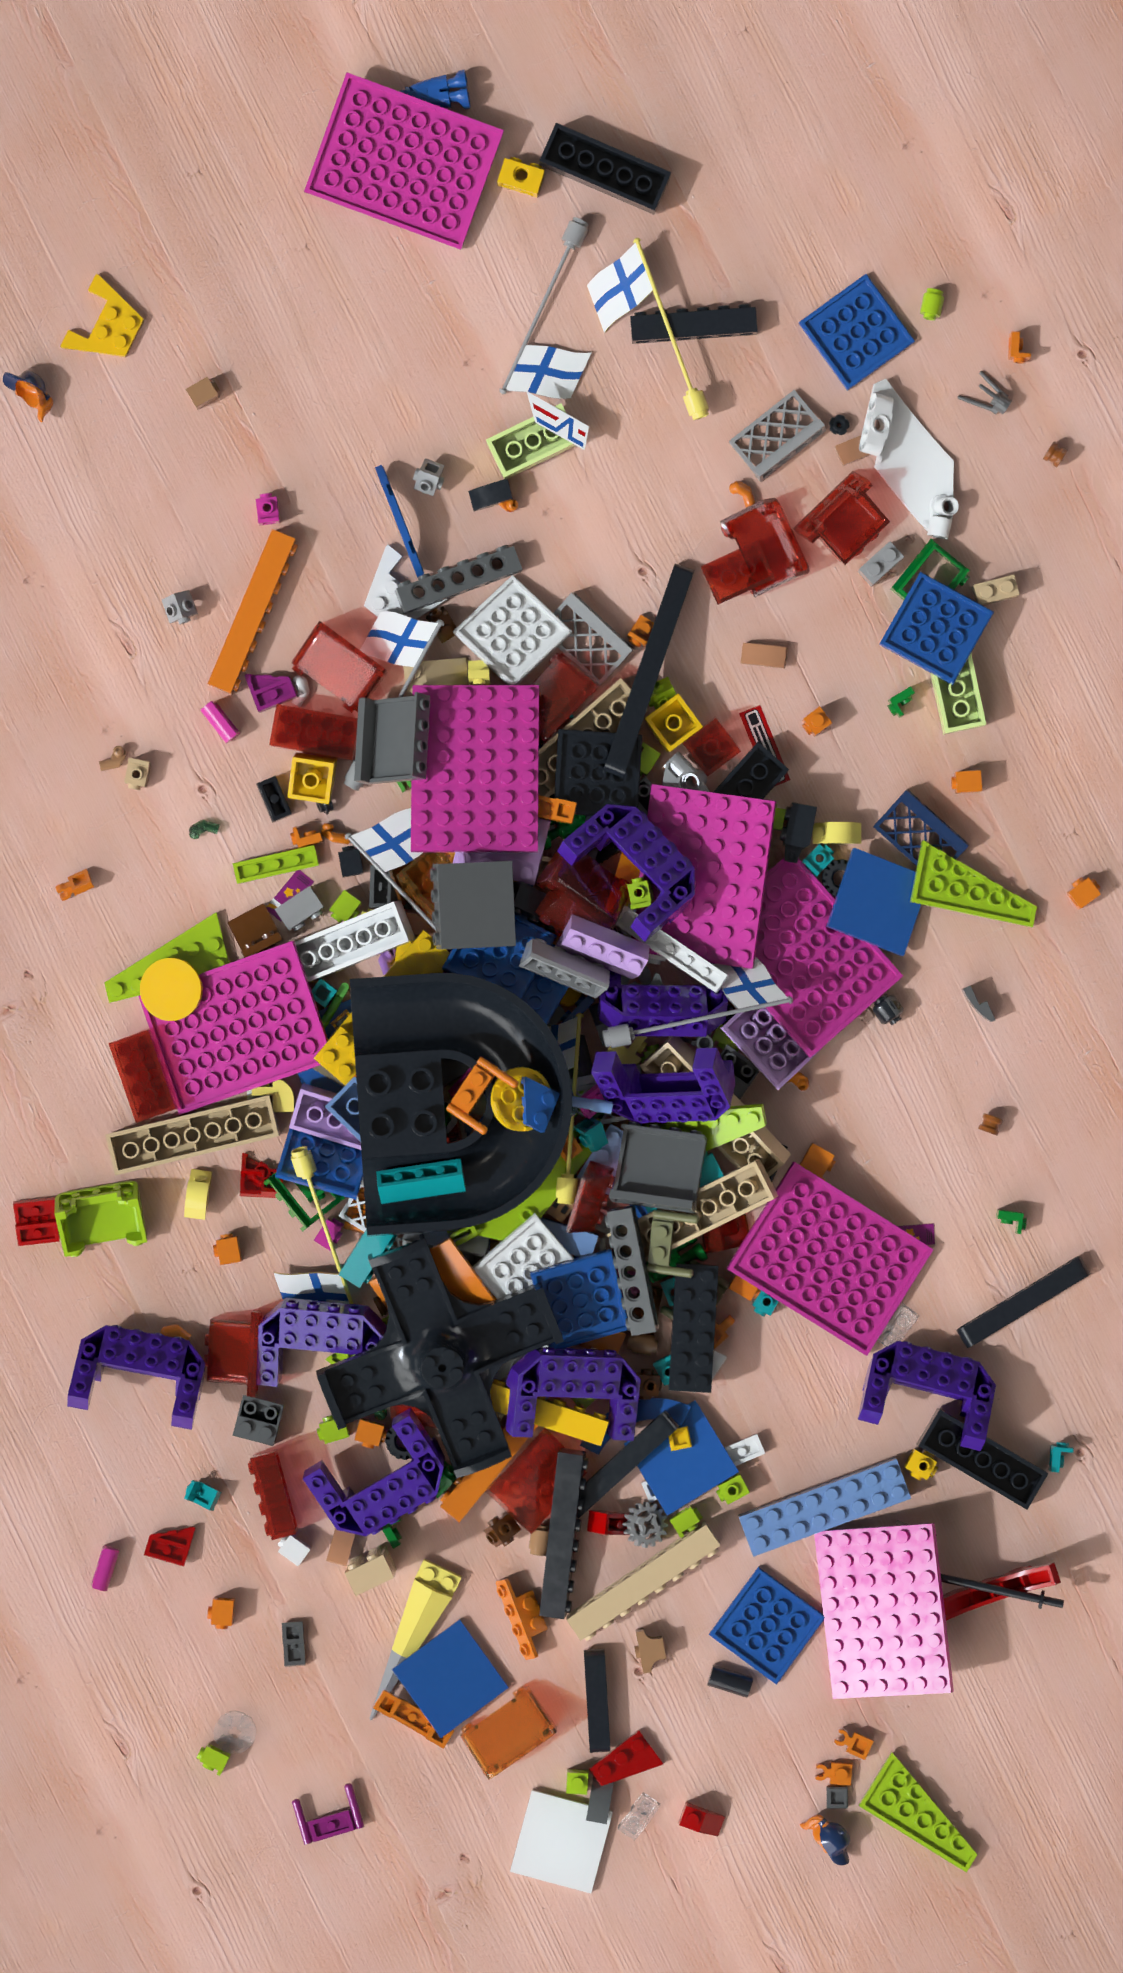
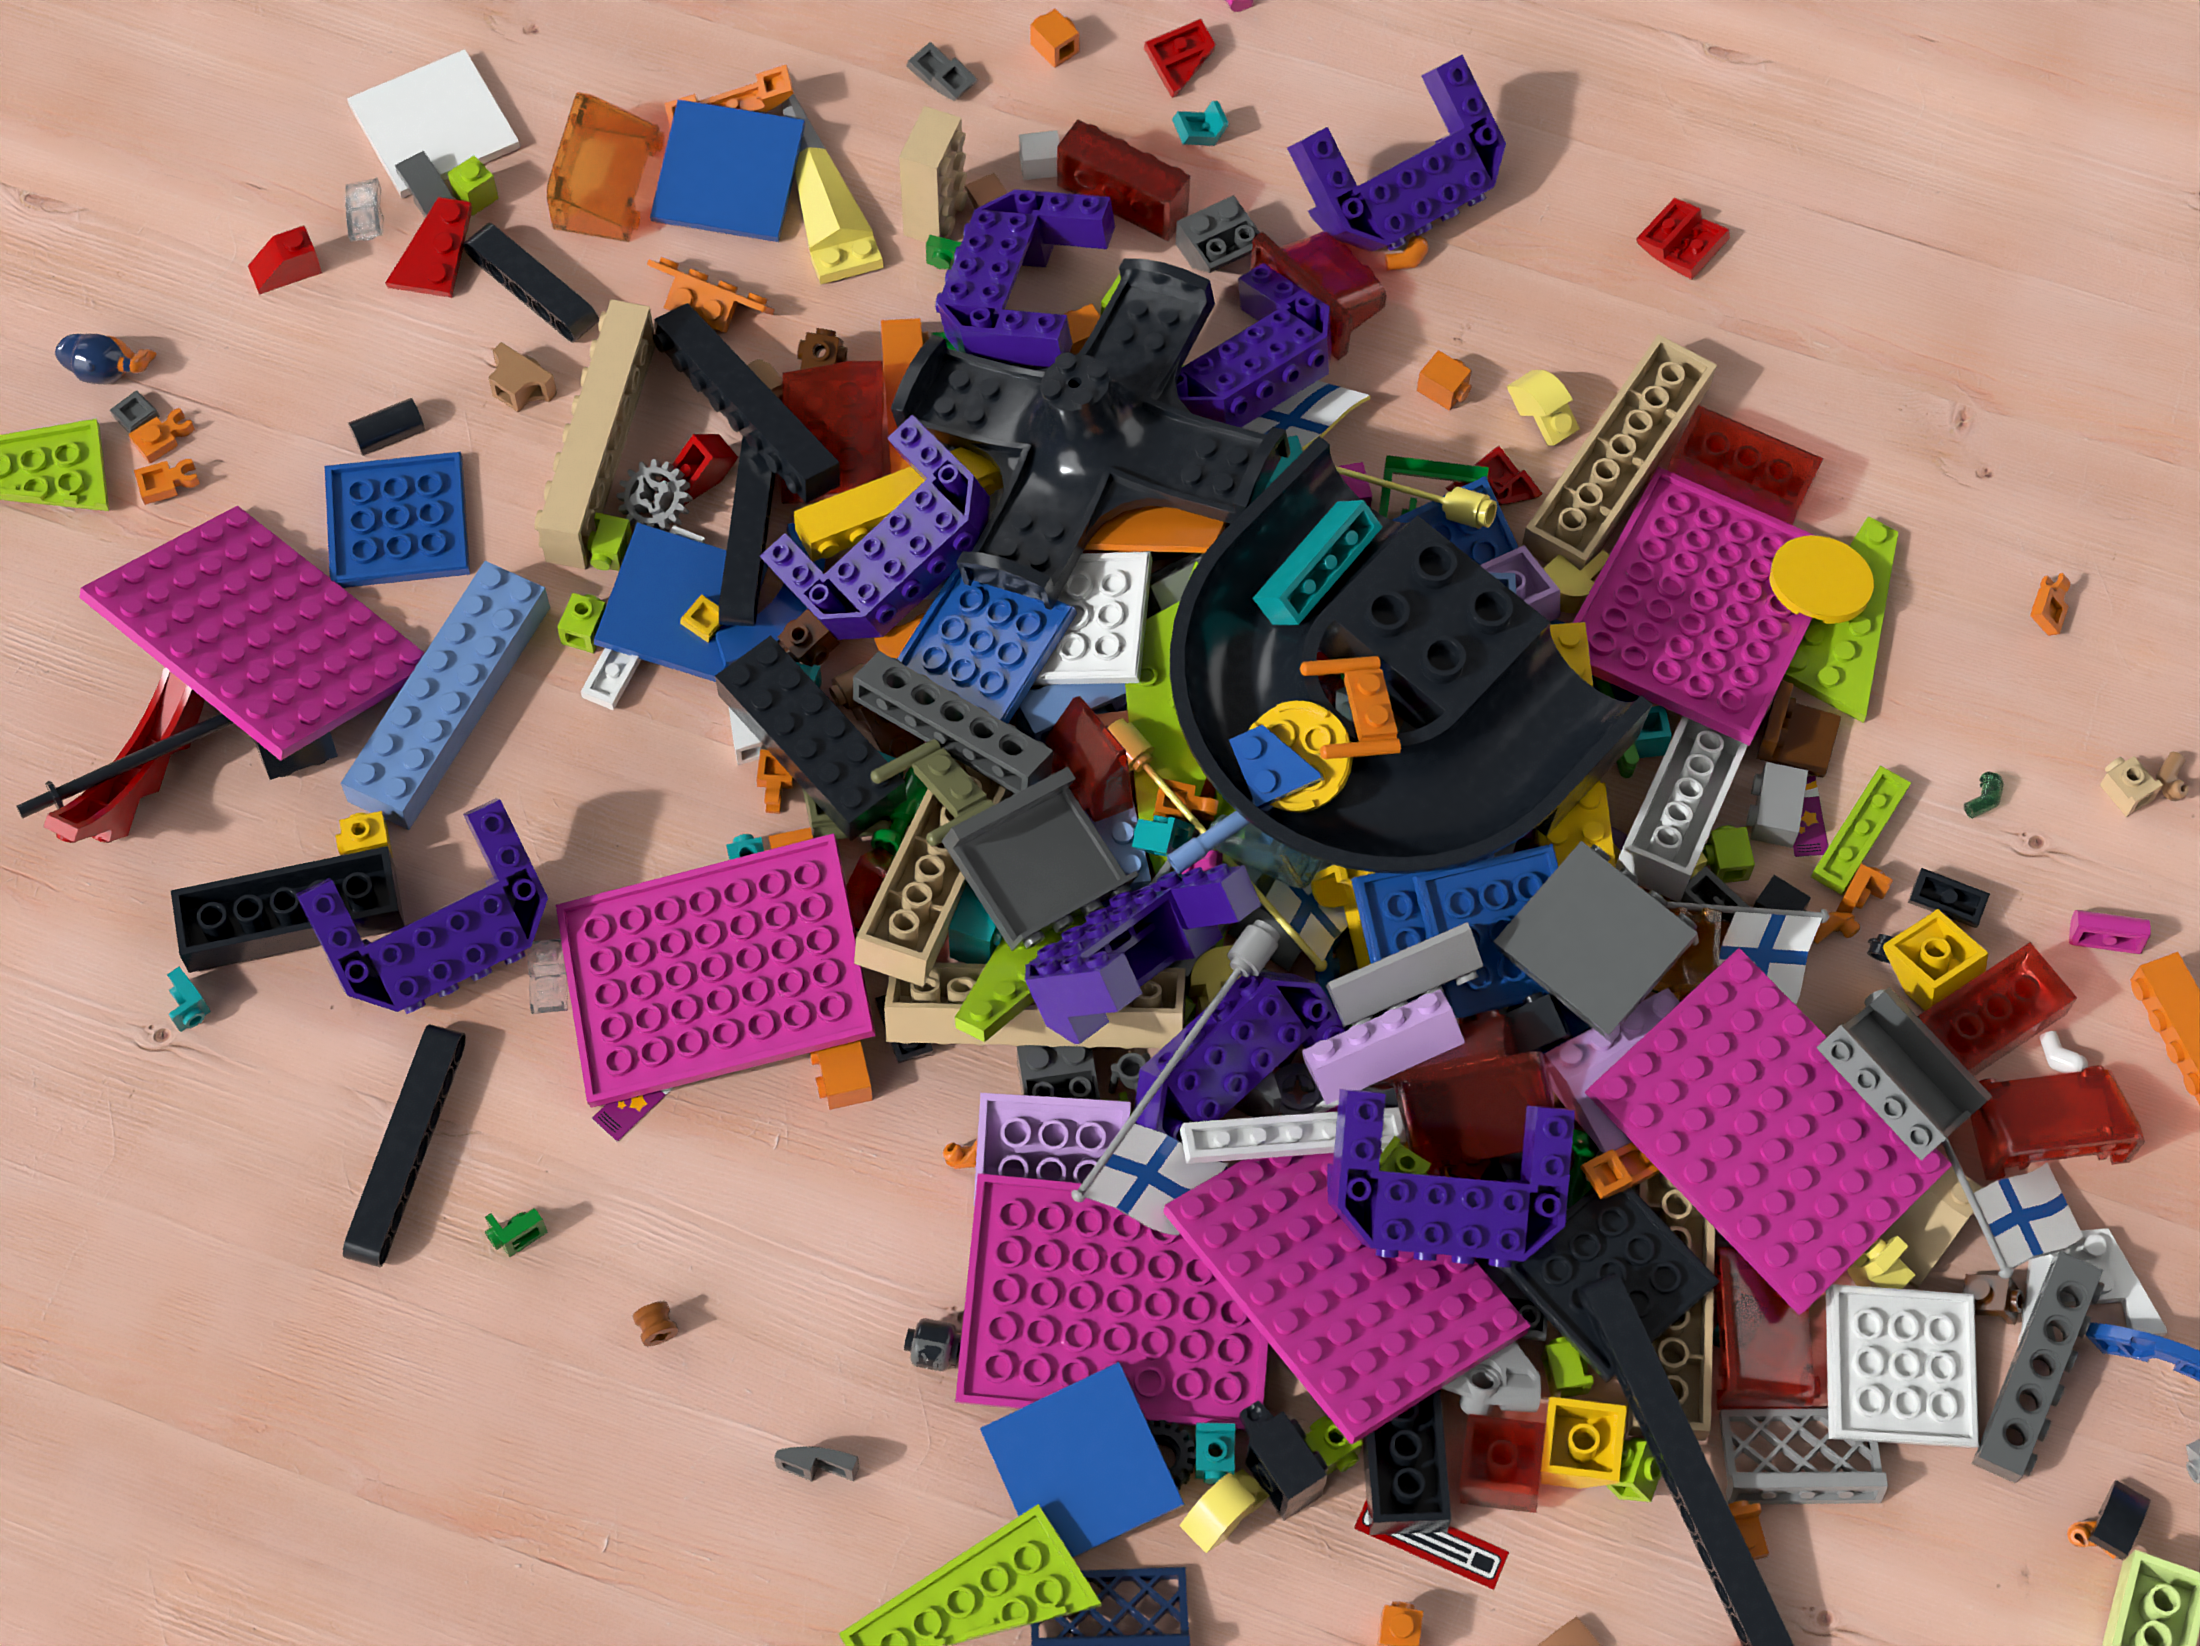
camera: 135 degrees right, 25 degrees down
(100, 1216) = (1628, 294): lime windscreen -> none
(270, 690) = (2096, 1020): magenta wing -> none

